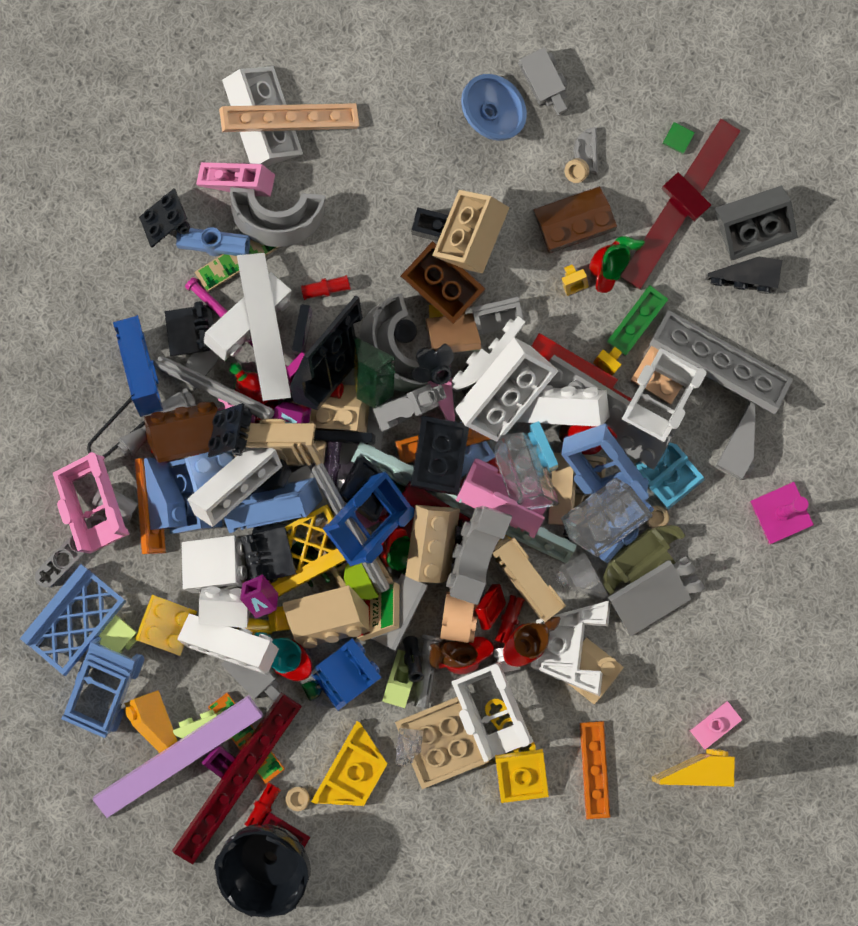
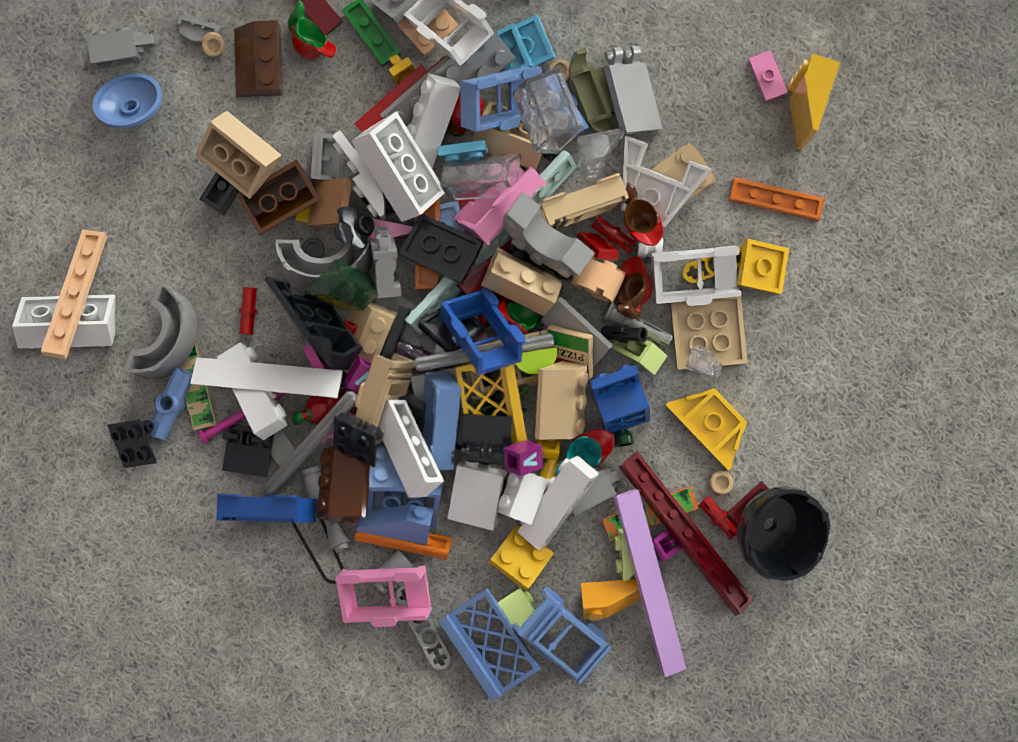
camera: 70 degrees left, 0 degrees up
(226, 175) = (111, 372): bright pink slope -> none
(302, 329) = (281, 343): black tile -> none
(574, 281) = (315, 78): yellow tile -> none

